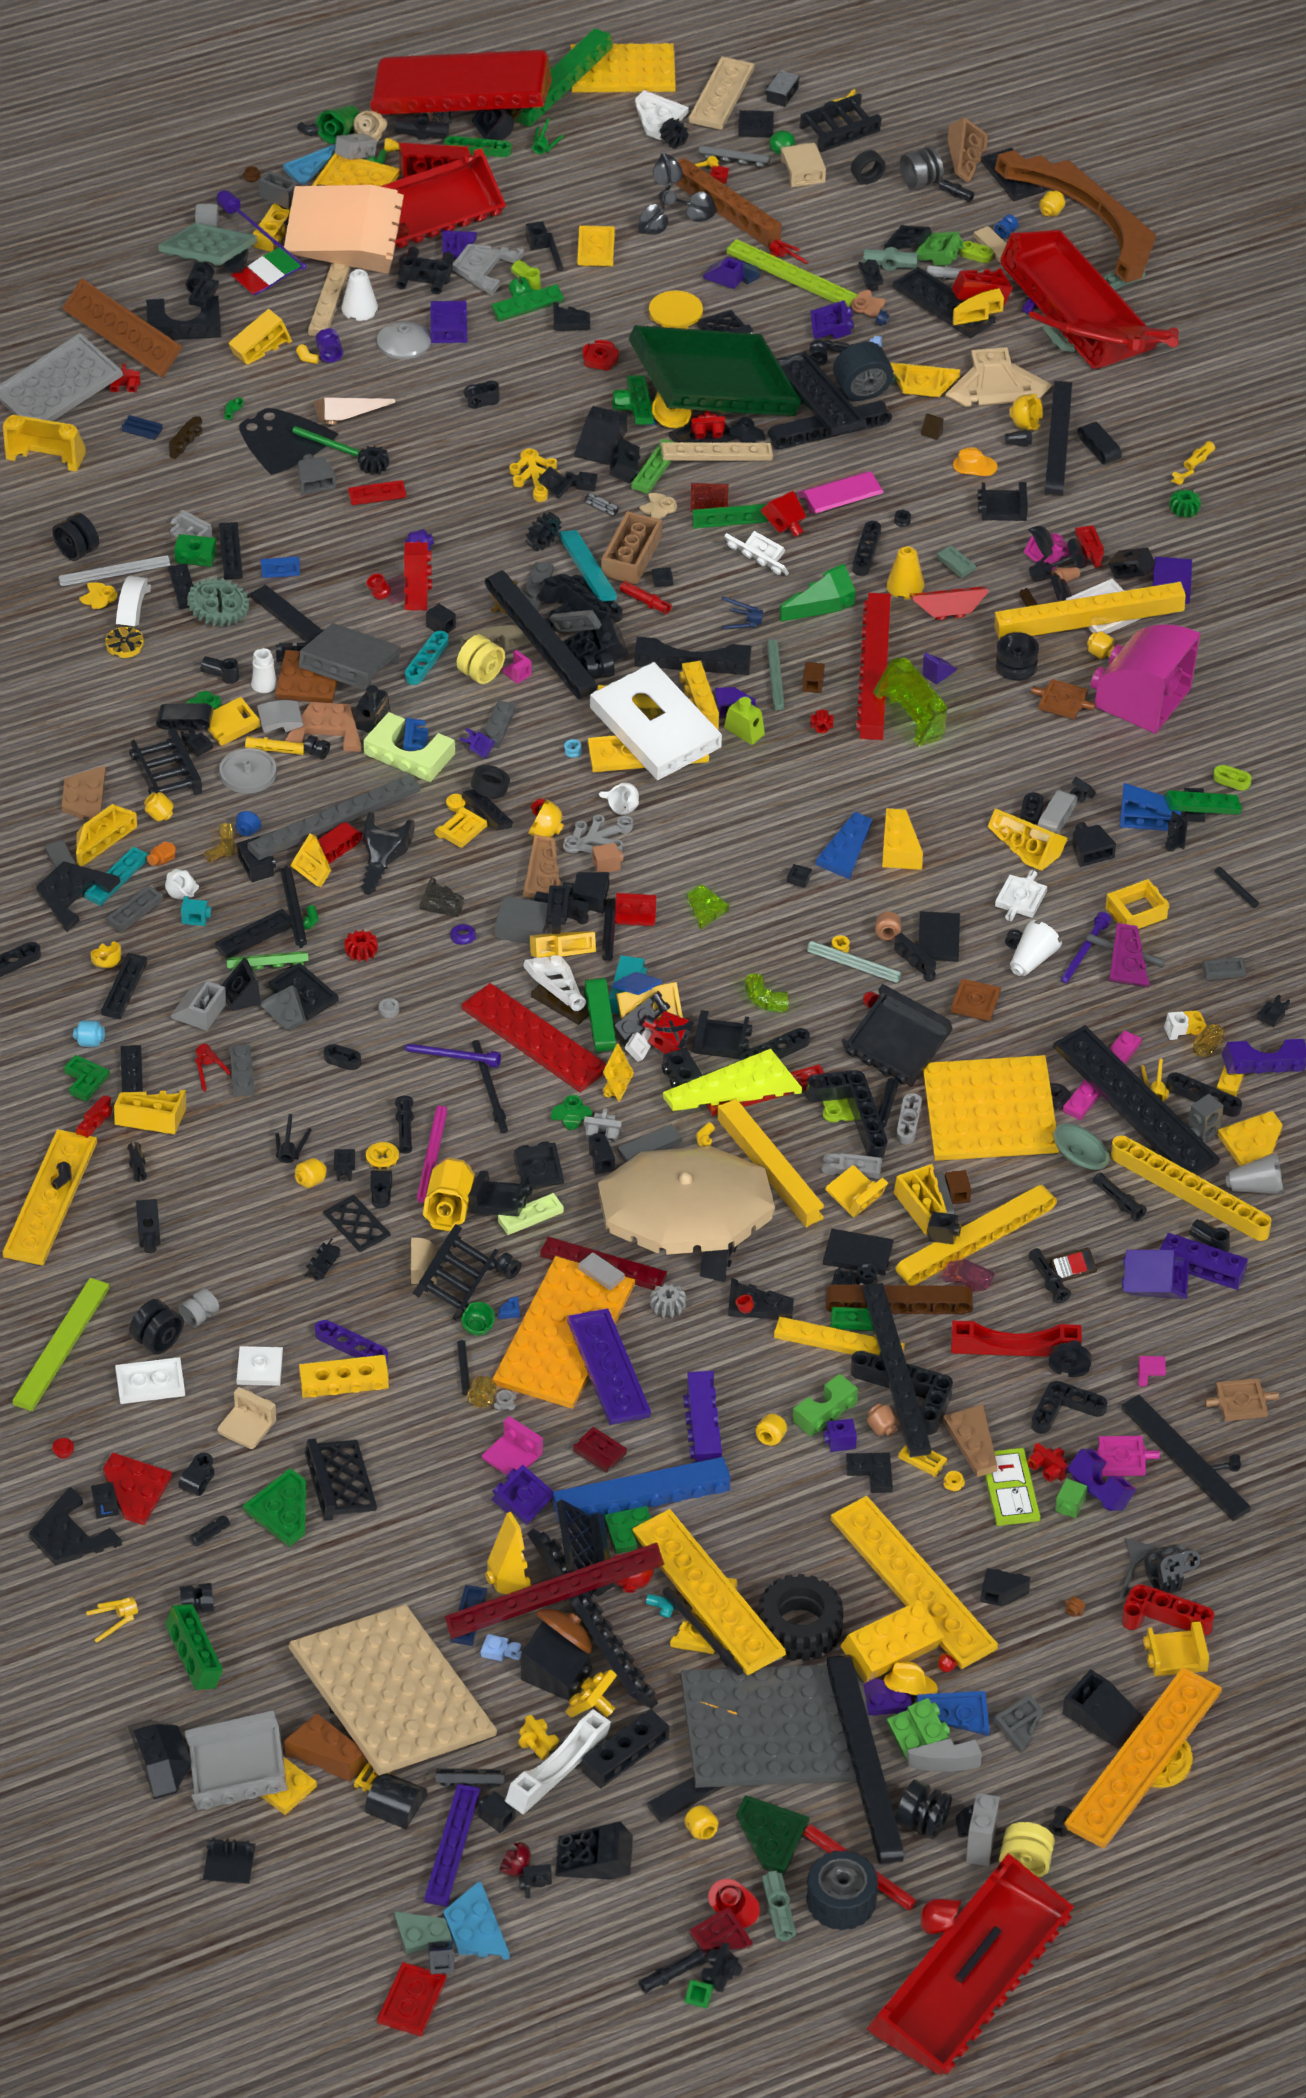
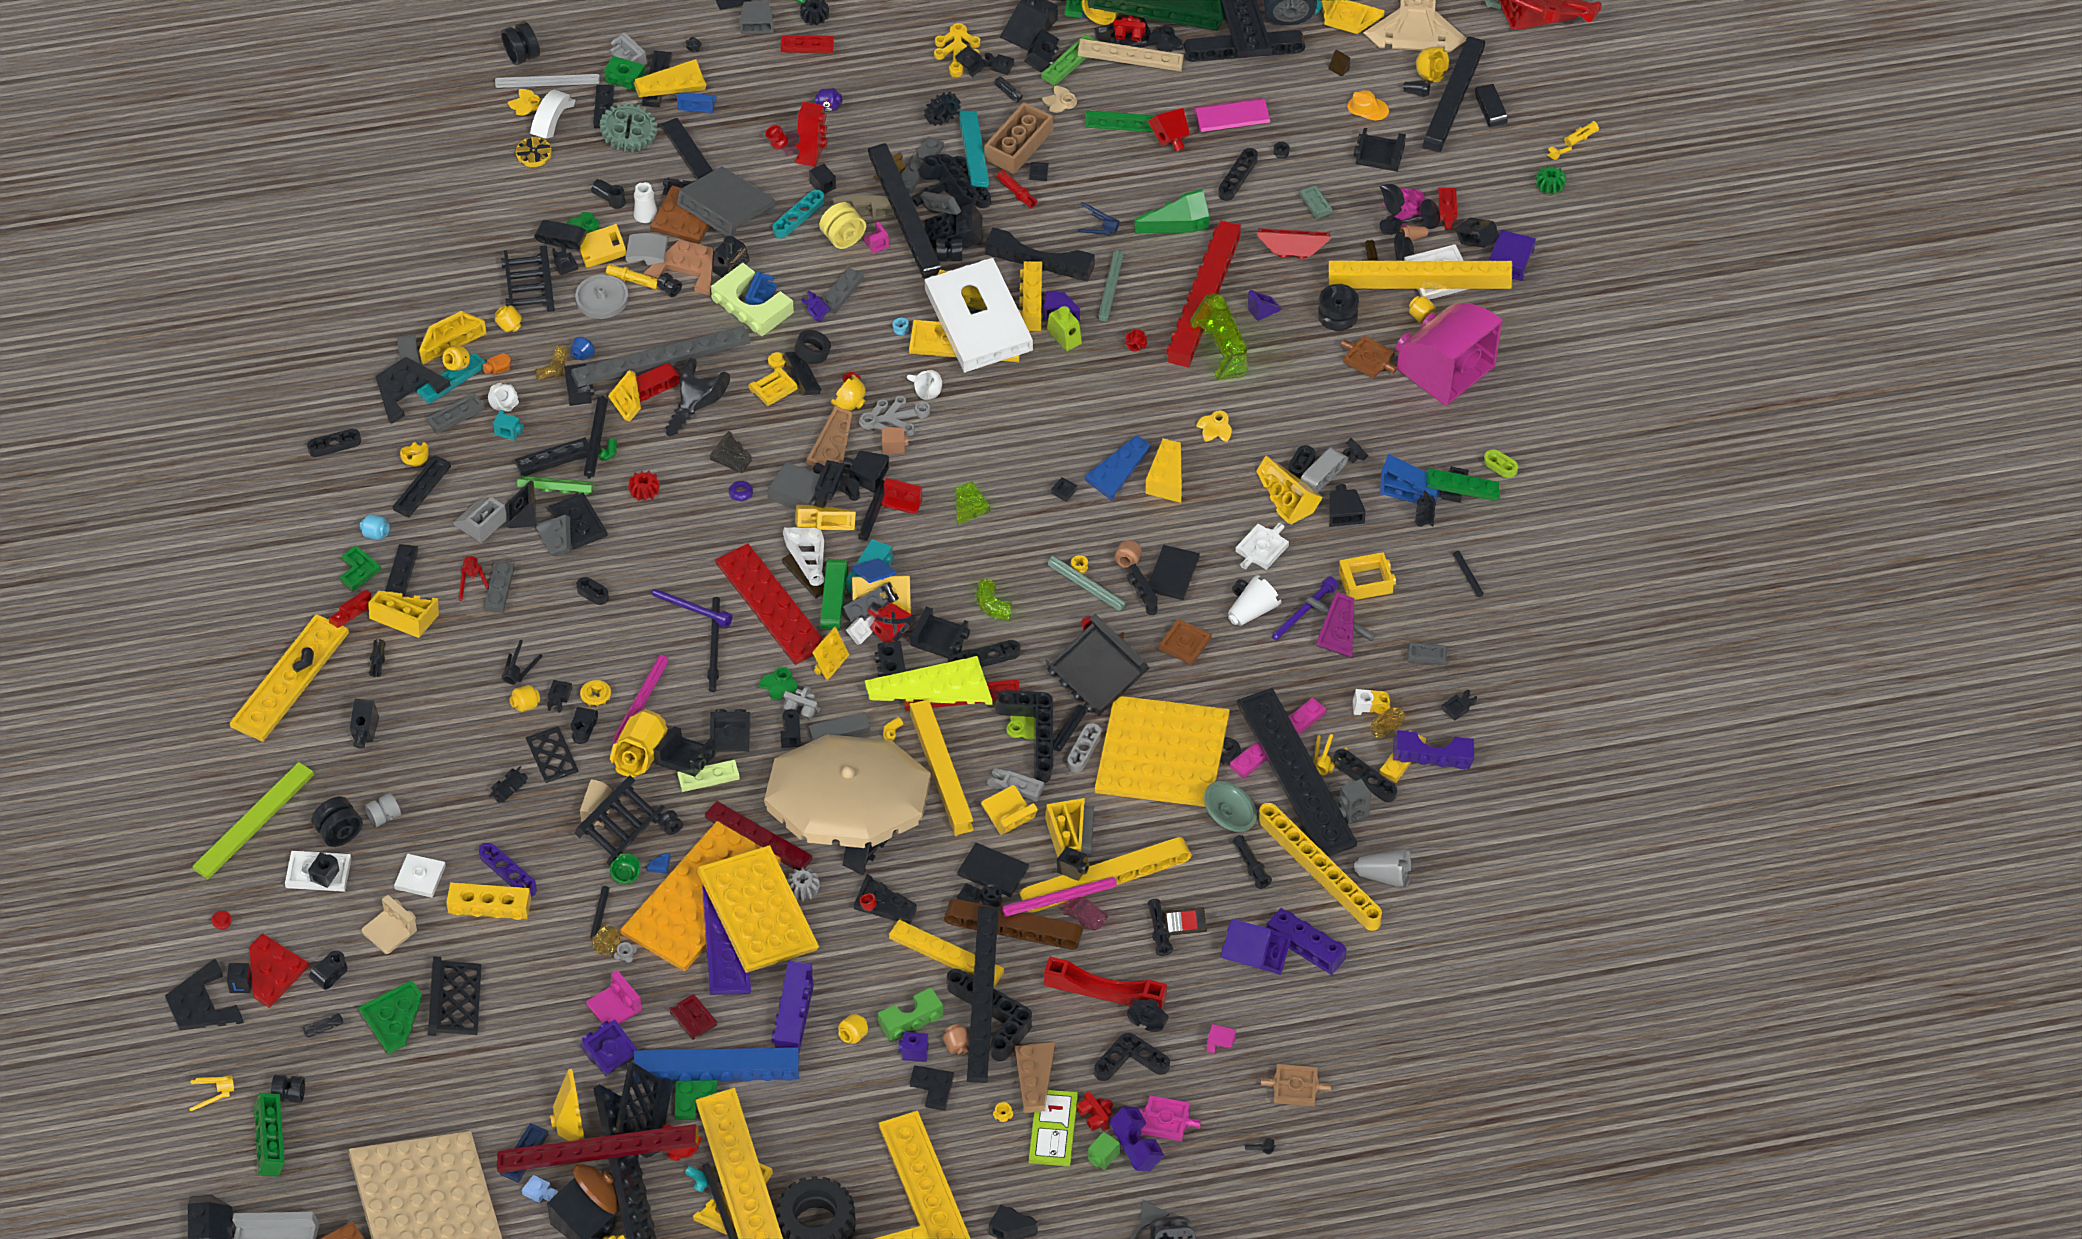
camera: 15 degrees right, 5 degrees up
(84, 793) = (449, 292): medium nougat wing -> none
(119, 853) = (456, 358): none -> yellow head
(159, 1376) = (320, 875): none -> black brick
(248, 549) = (677, 79): none -> yellow wing
(257, 511) = (693, 44): none -> black plate
(389, 1008) = (650, 550): light grey tile -> none
(404, 1116) = (627, 660): black pin -> none
(601, 1271) = (747, 839): light grey tile -> none
(633, 1330) = (757, 909): none -> yellow plate
(708, 496) = (1108, 99): clear red brick -> none
(762, 549) = (1139, 158): white bracket -> none
(813, 677) = (1143, 295): reddish brown brick -> none
(850, 1319) = (961, 934): green hinge -> none
(905, 574) = (1262, 208): yellow cone -> none
(923, 1462) = (992, 1094): yellow tile -> none
(931, 792) = (1213, 428): none -> yellow plate
(939, 1262) = (1059, 896): none -> dark pink axle
(958, 1186) = (1104, 824): reddish brown brick -> none
(1186, 1457) = (1225, 1132): black tile -> none
(1210, 1235) = (1324, 919): black piece -> none
(1251, 1137) = (1396, 827): yellow plate -> none

